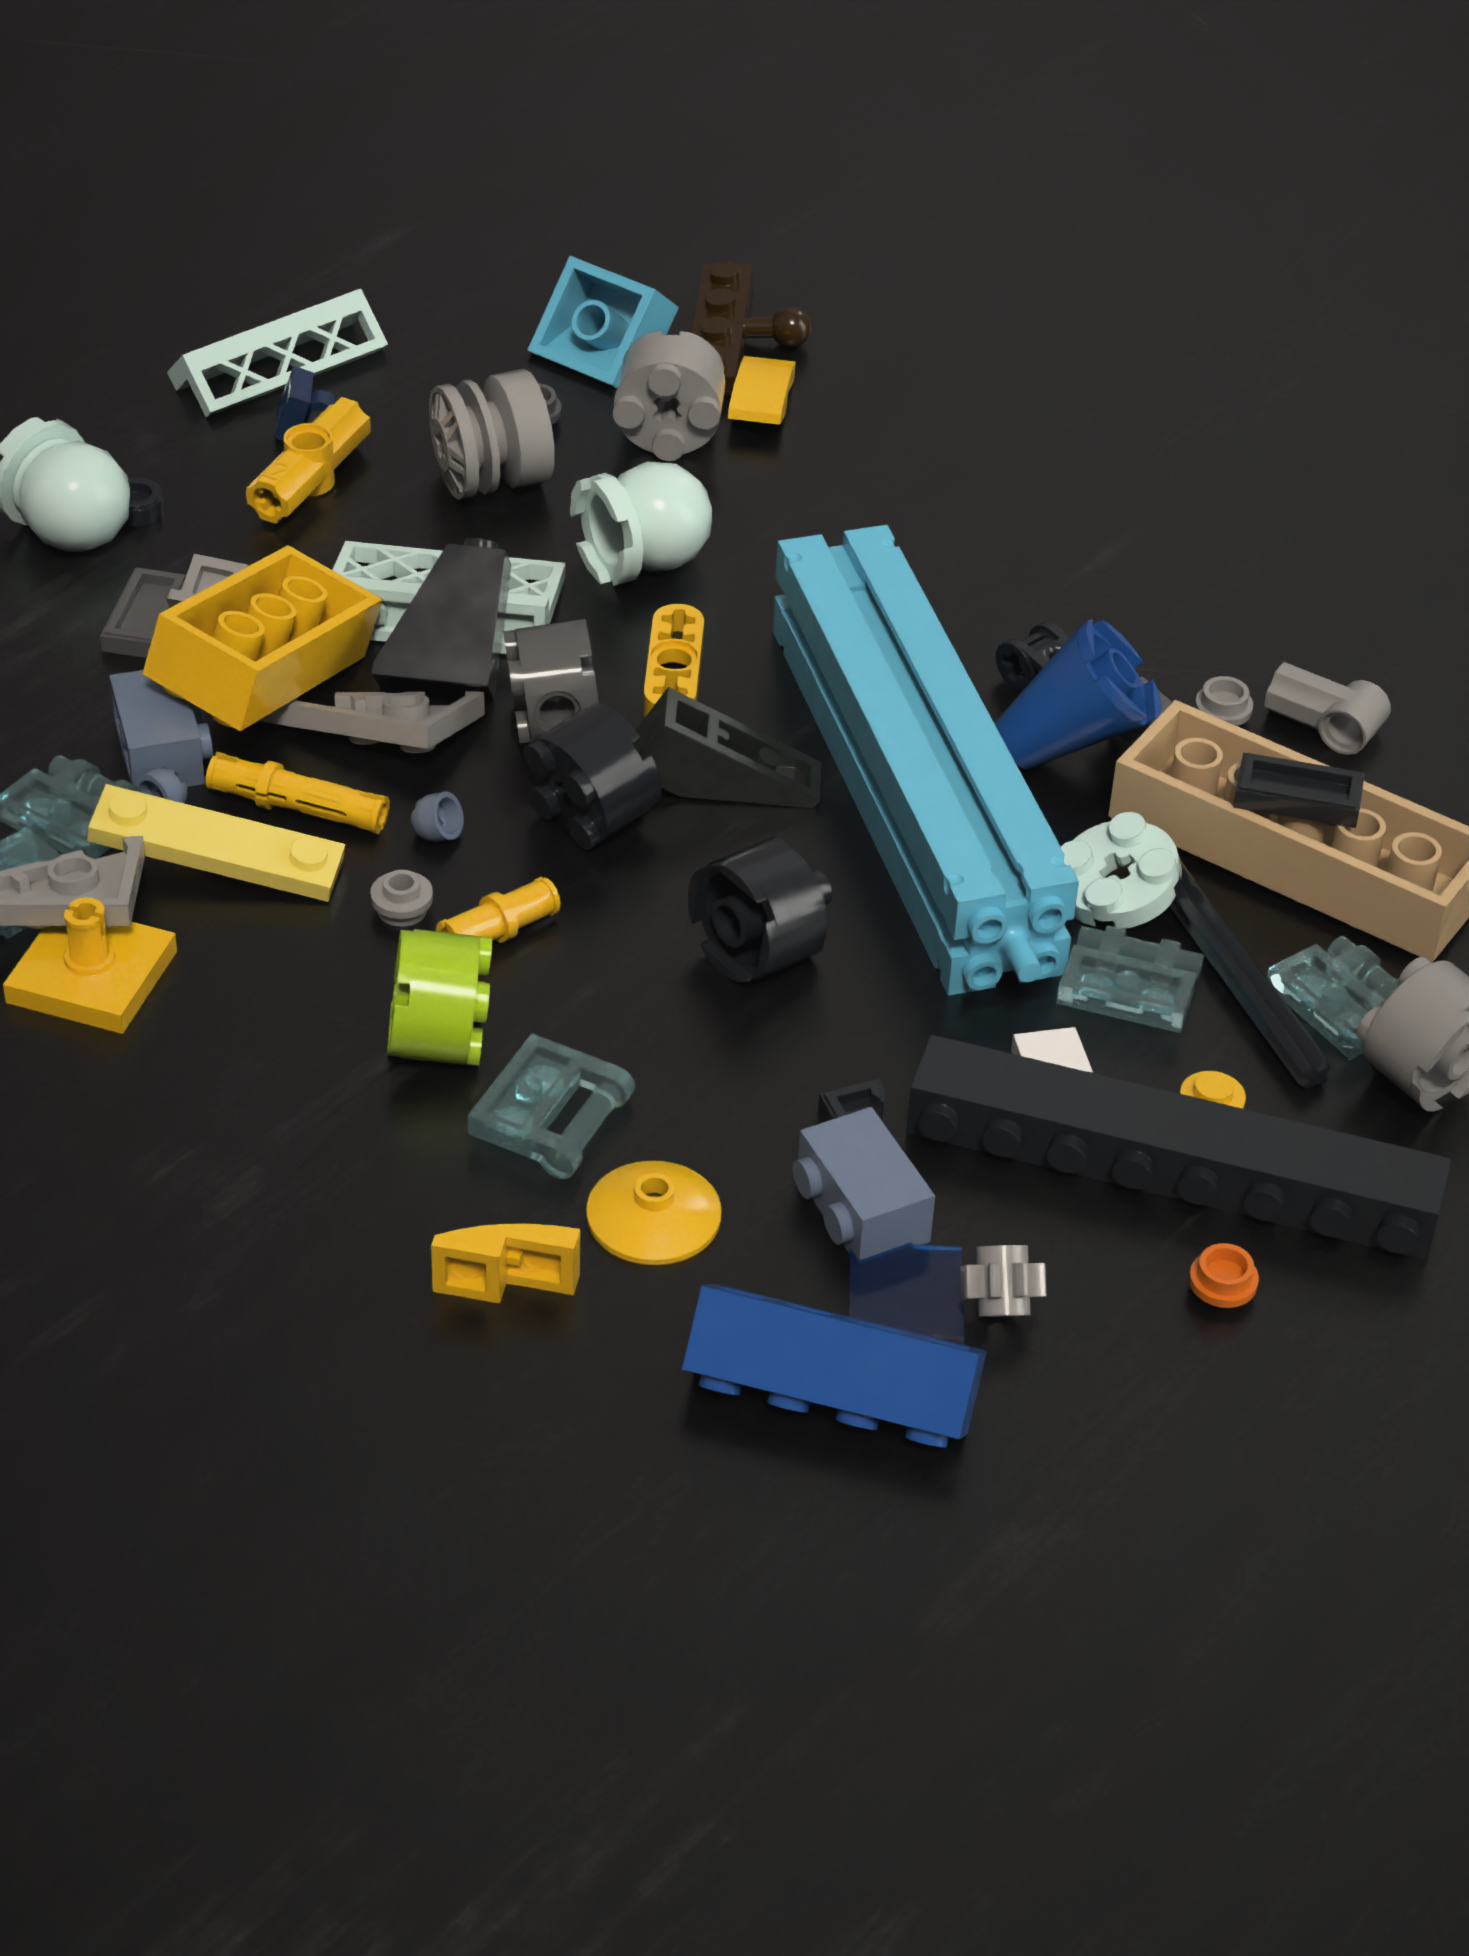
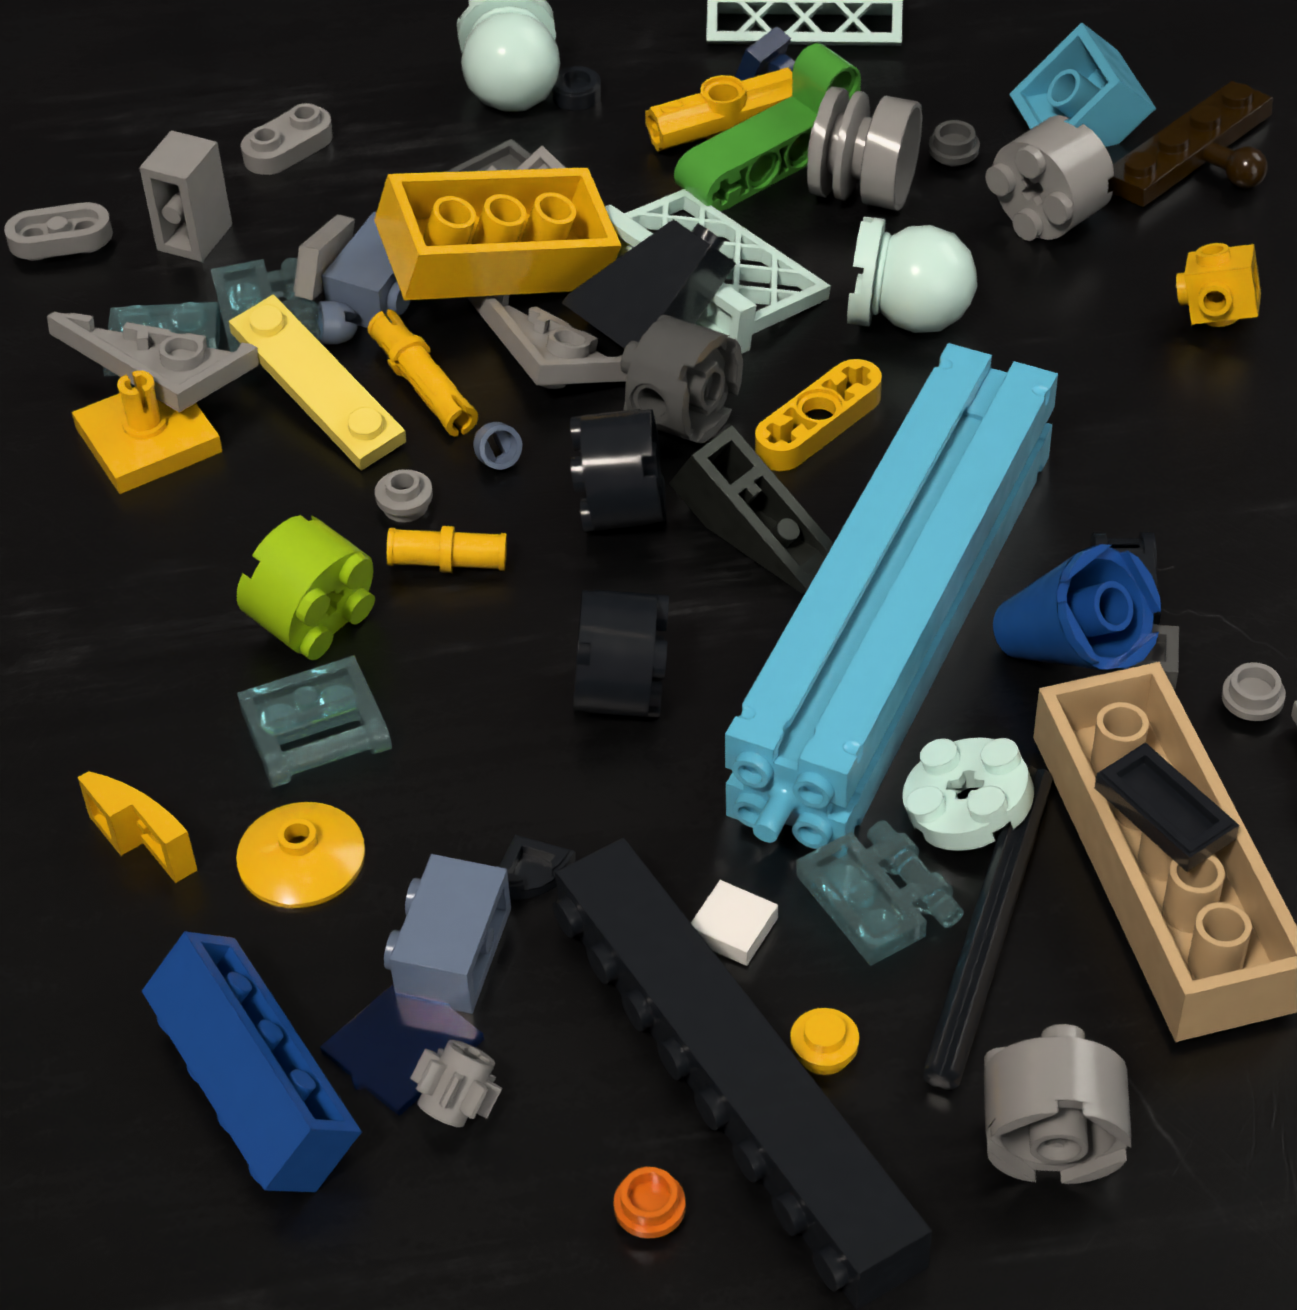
camera: 45 degrees right, 5 degrees up
(104, 734) = (318, 253): none -> light grey tile
(388, 457) = (770, 142): none -> bright green beam
(761, 390) = (1154, 212): yellow slope -> none
(885, 419) = (1220, 284): none -> yellow brick
(1334, 989) = (1035, 996): clear light blue plate -> none

